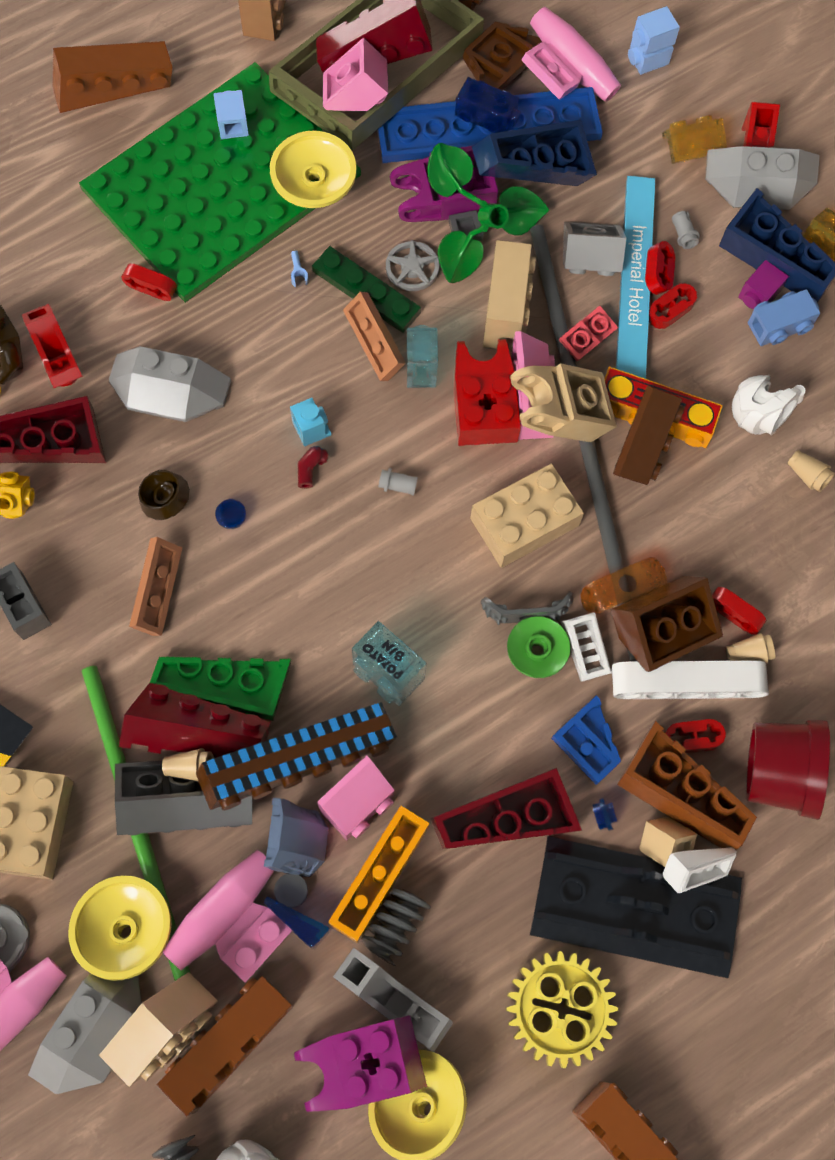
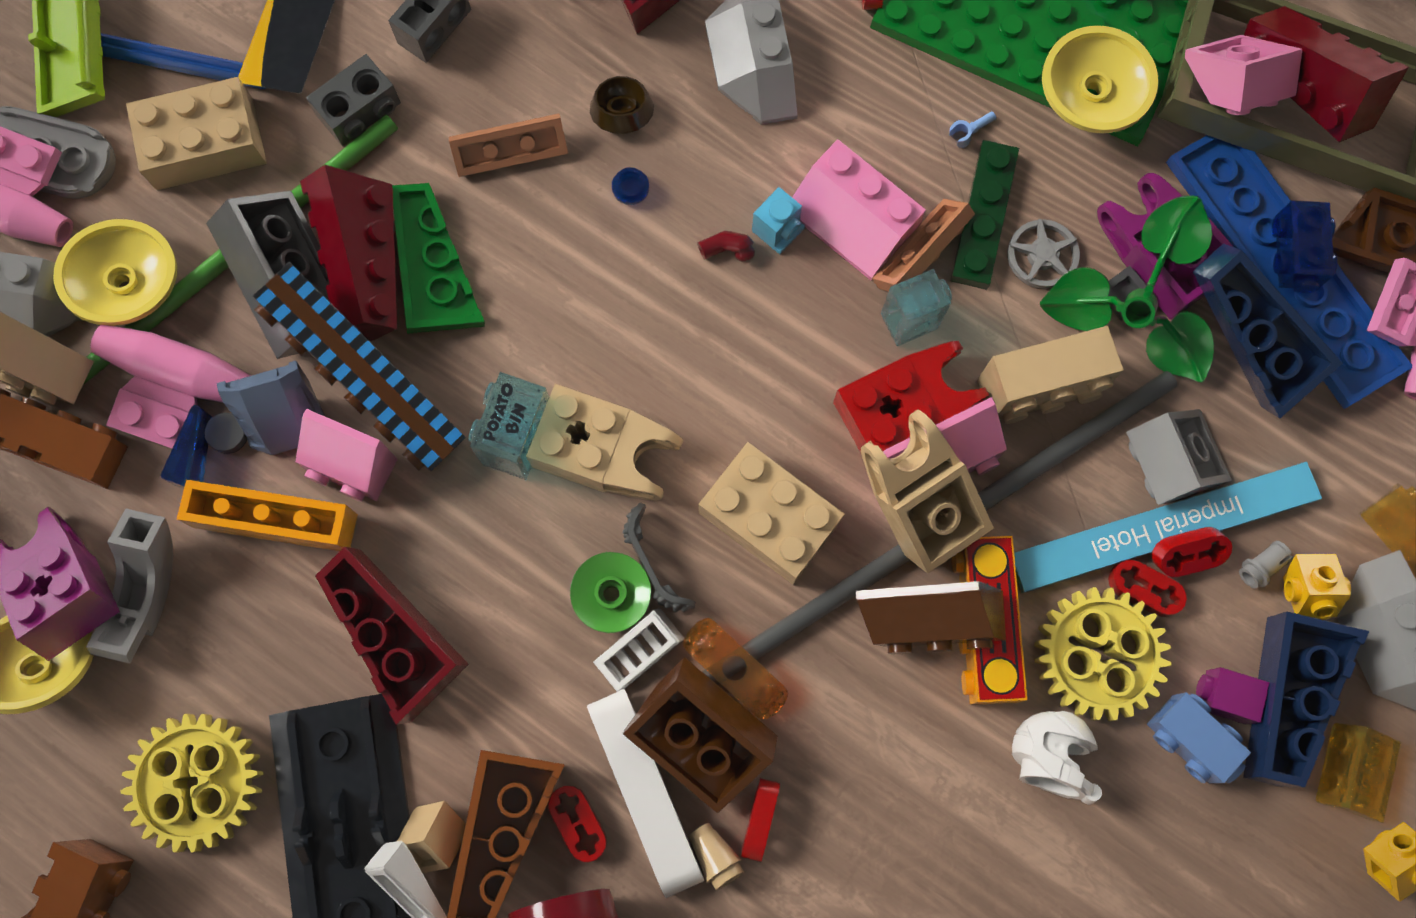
camera: 70 degrees right, 5 degrees up
(52, 691) = (347, 93): none -> dark grey brick
(185, 764) = (308, 259): tan cone -> none
(326, 366) = (856, 209): none -> bright pink slope
(394, 924) = (221, 559): dark grey piece -> none
(397, 482) = (750, 350): light grey pin -> none
(432, 603) = (612, 446): none -> tan brick
(588, 333) = (1052, 496): coral slope -> none
(589, 742) = (520, 698): blue wing -> none
(605, 814) = (436, 748): clear blue plate -> none
(713, 206) = (1316, 585): none -> yellow brick
(725, 367) = (1091, 687): none -> light yellow gear
(811, 471) = (996, 851): tan cone -> none

